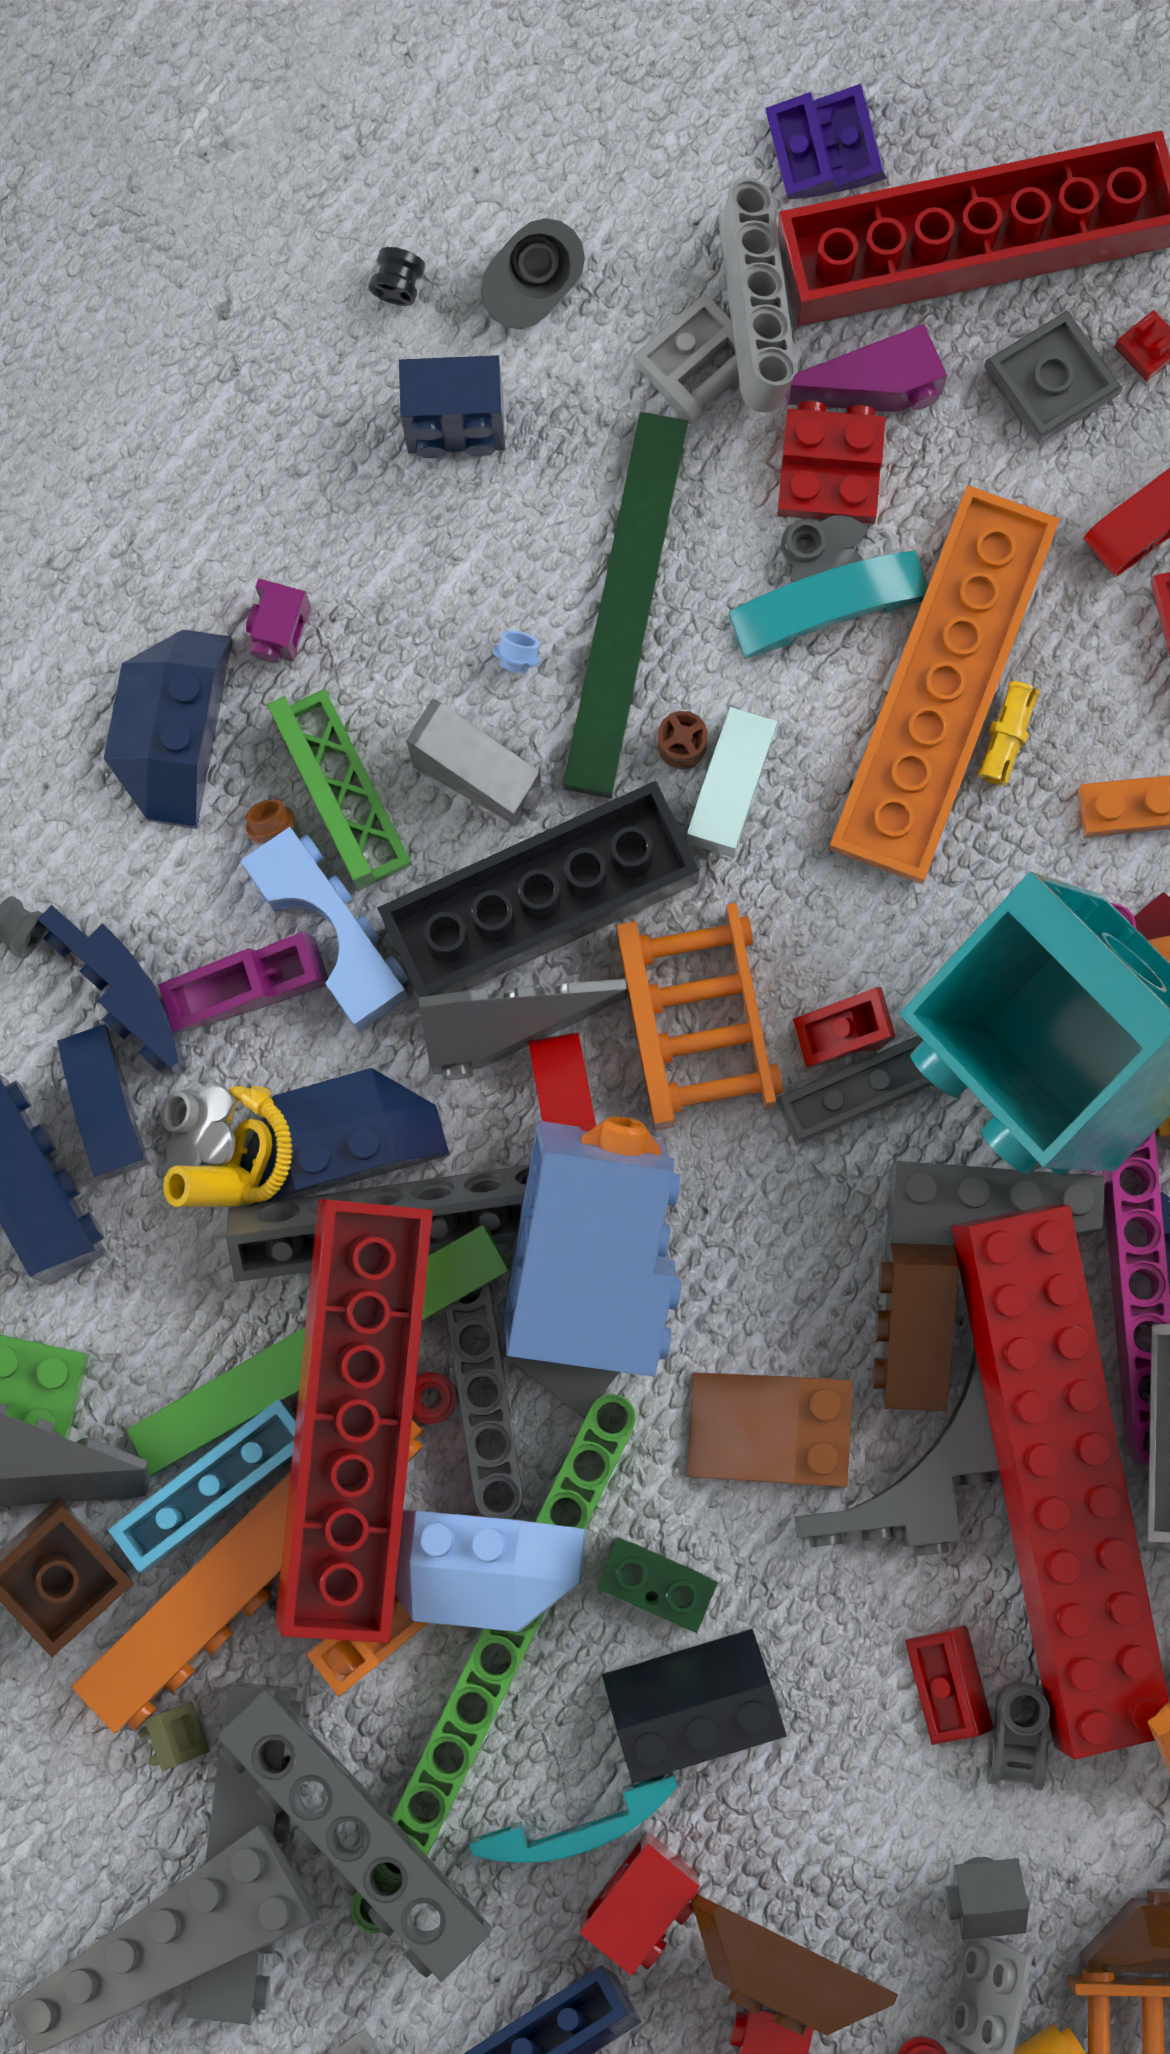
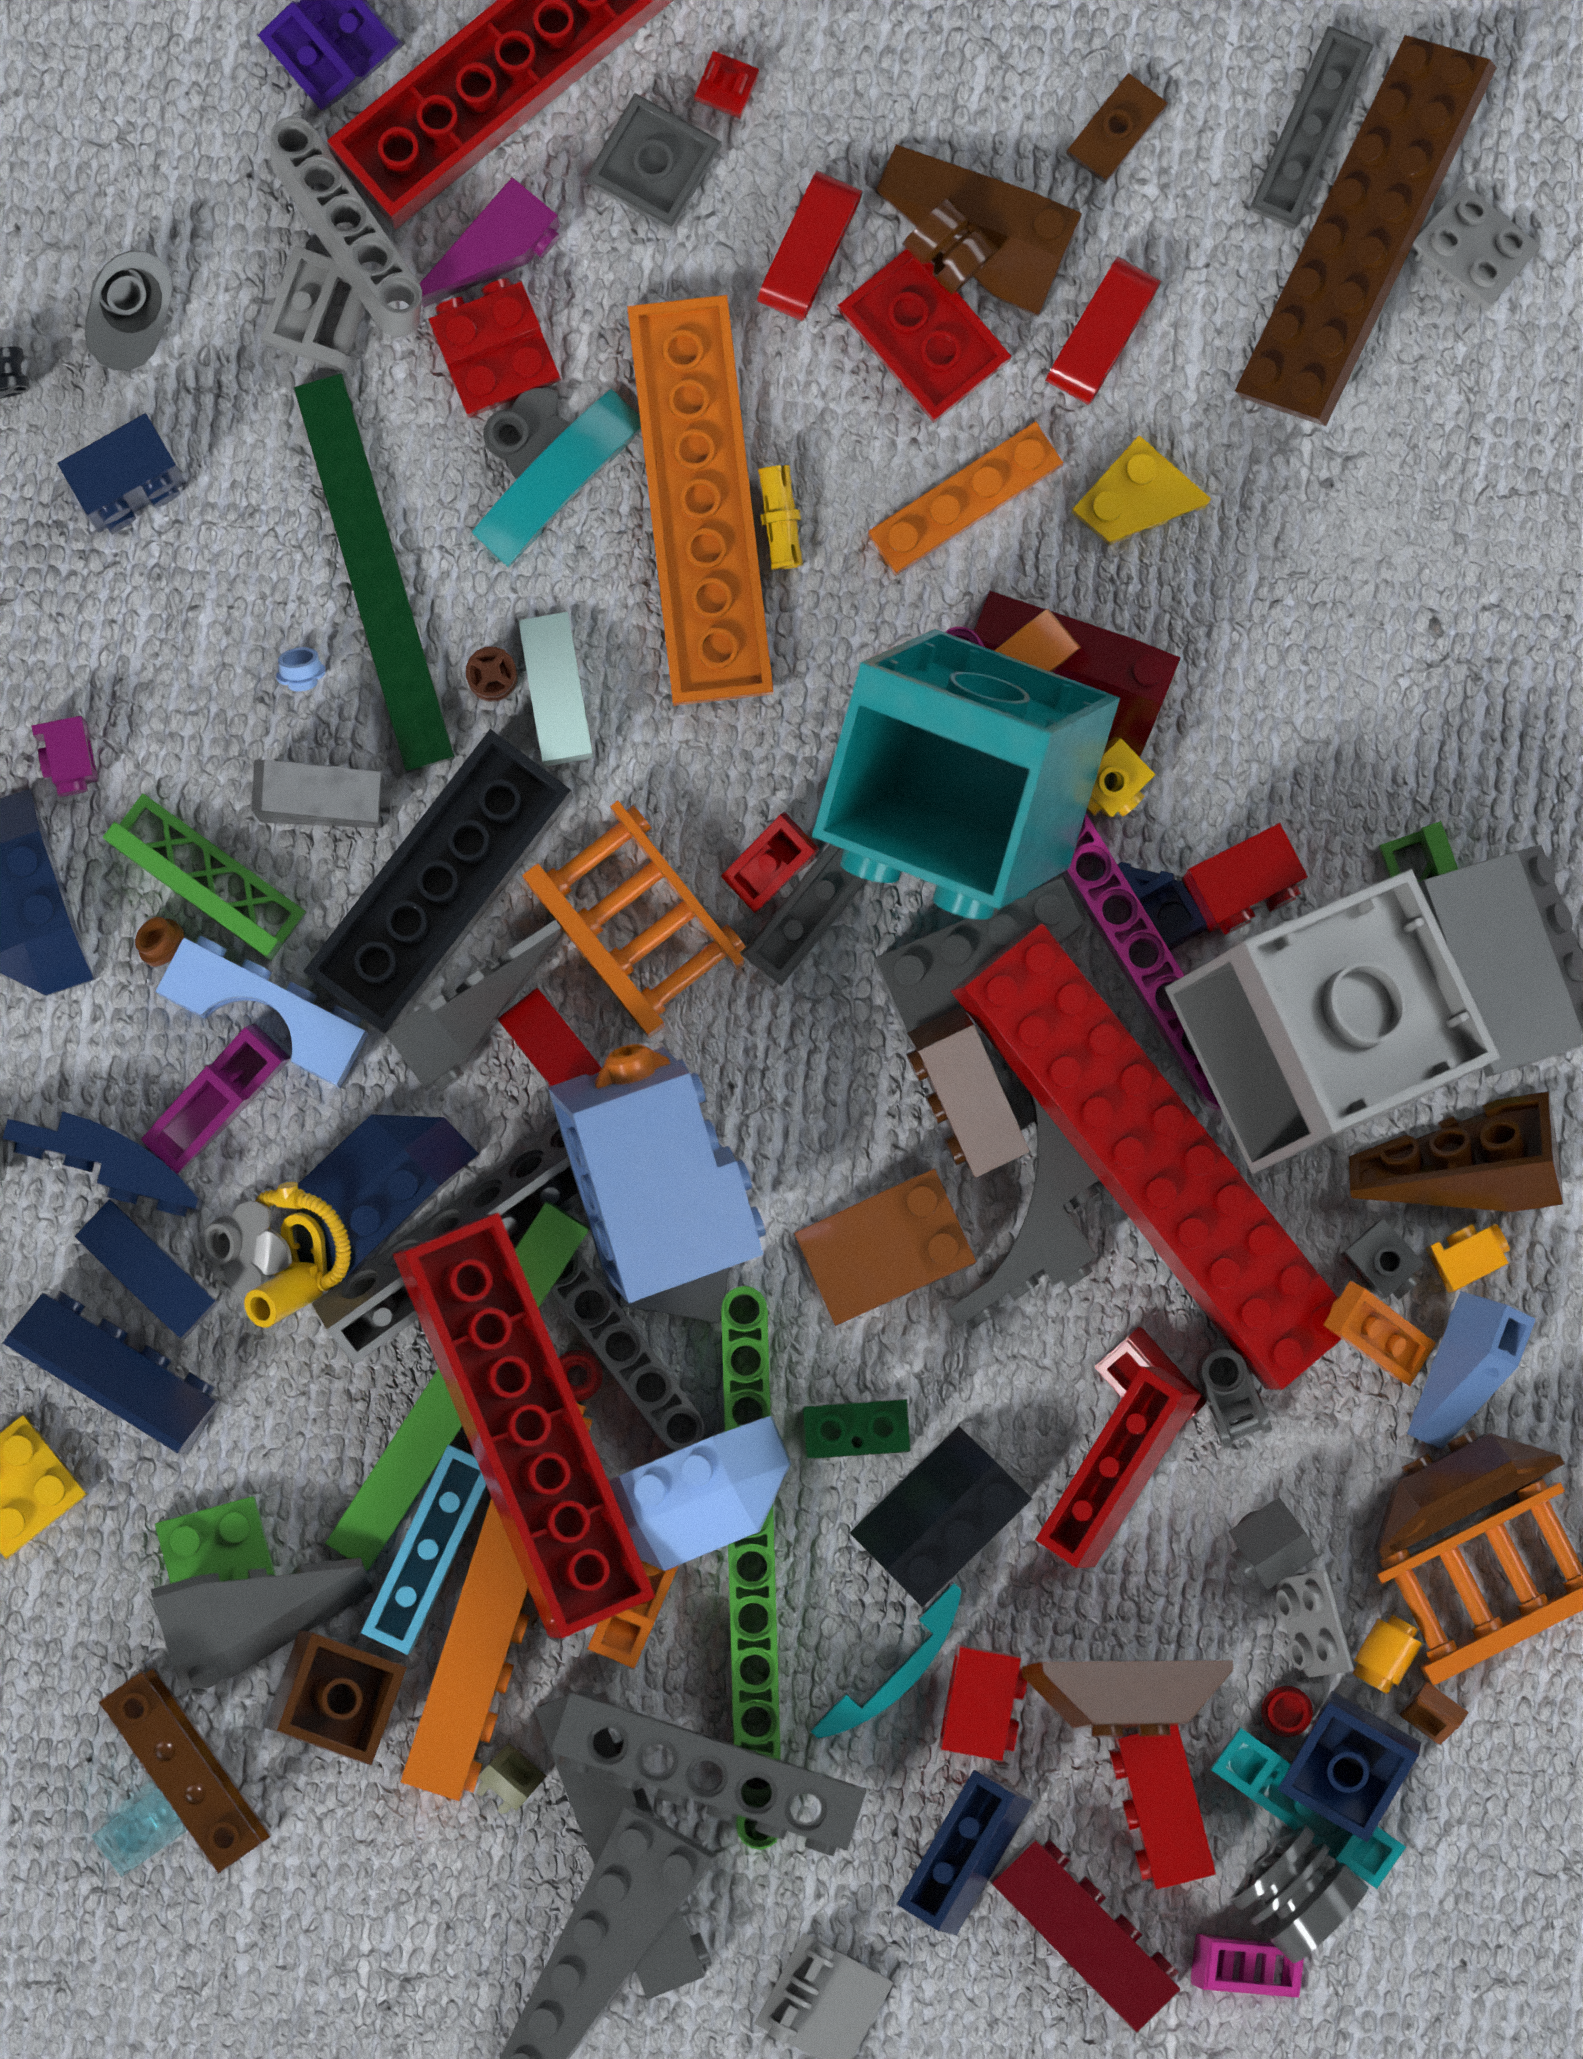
camera: 35 degrees left, 5 degrees up
(881, 1749) = (1118, 1467): none -> red brick

